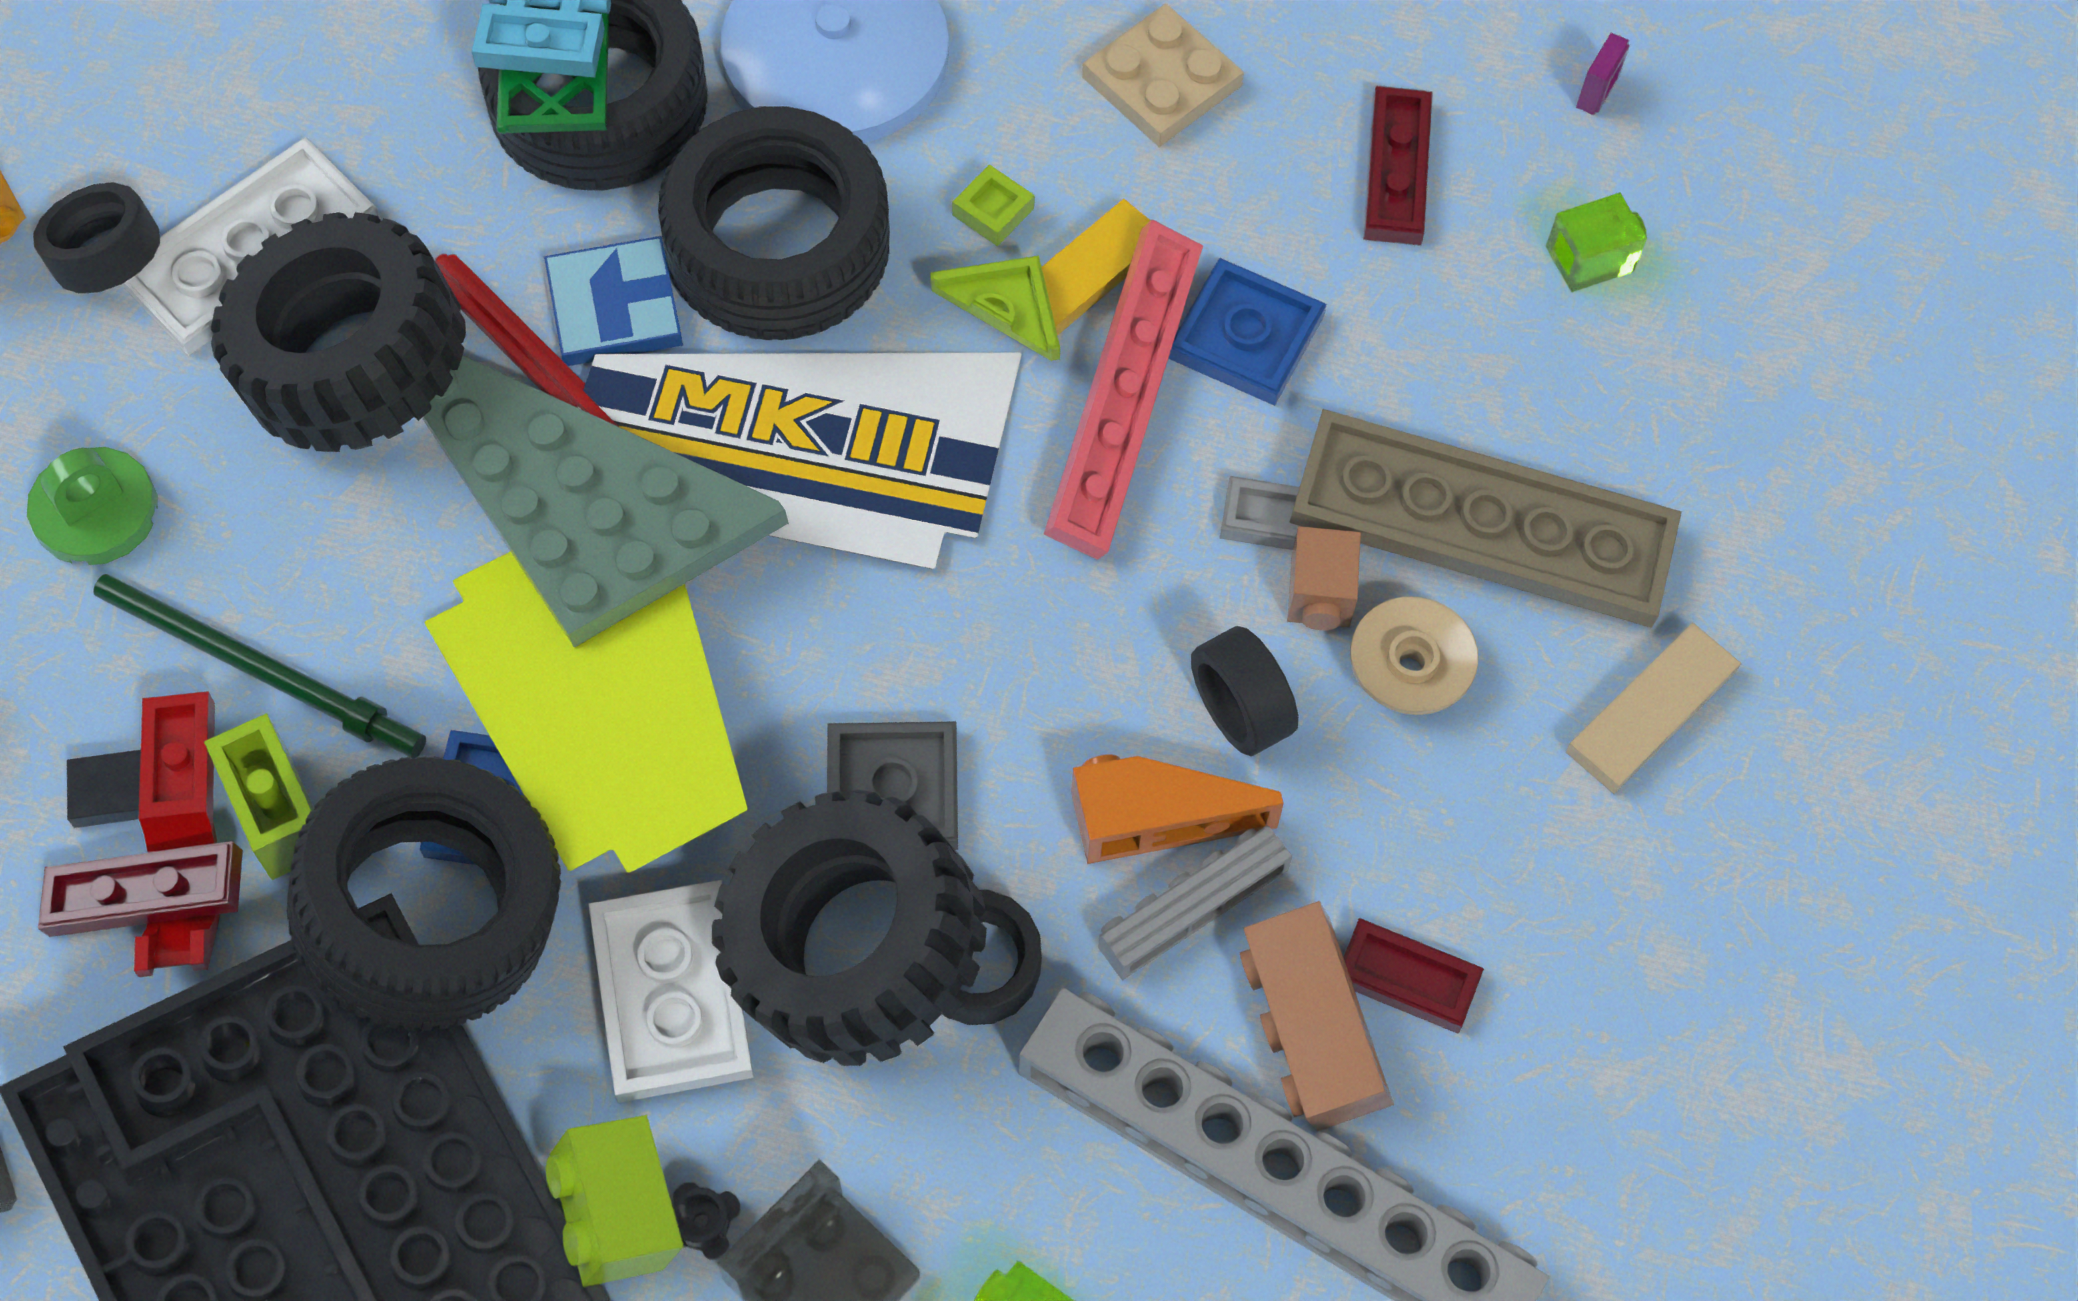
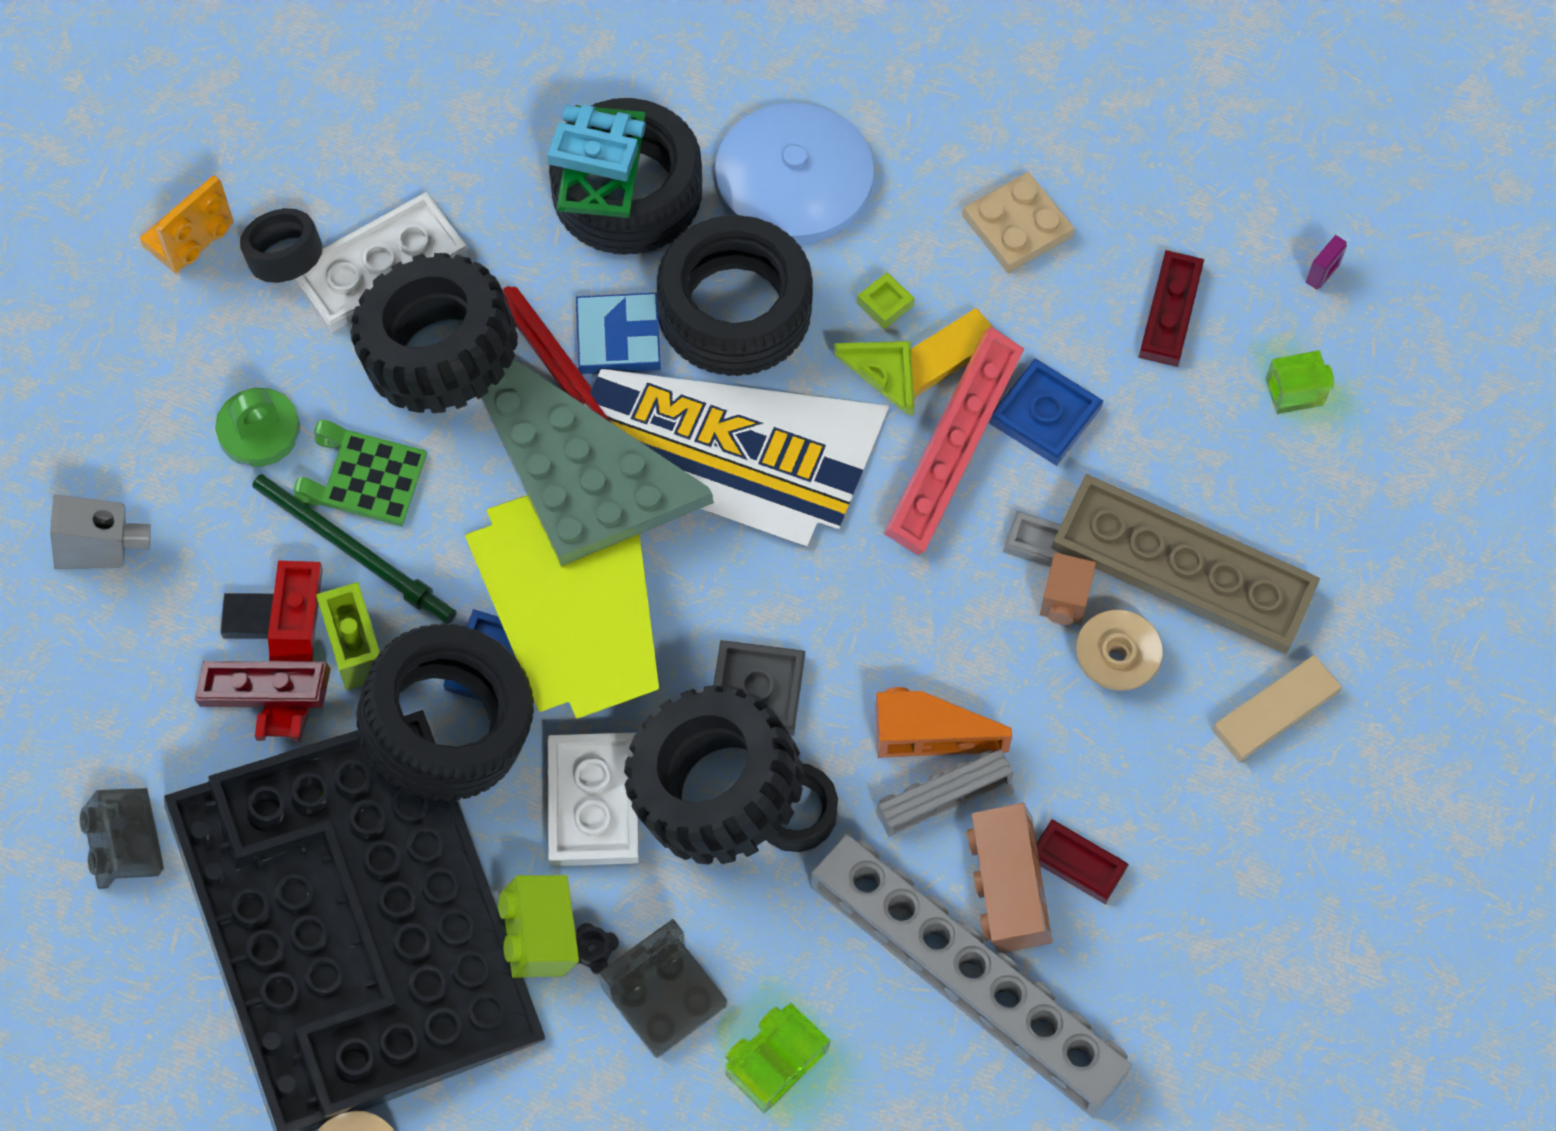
camera: 10 degrees right, 0 degrees up
(266, 555) = (368, 476): none -> bright green flag
(1244, 690) = (999, 657): black tyre -> none

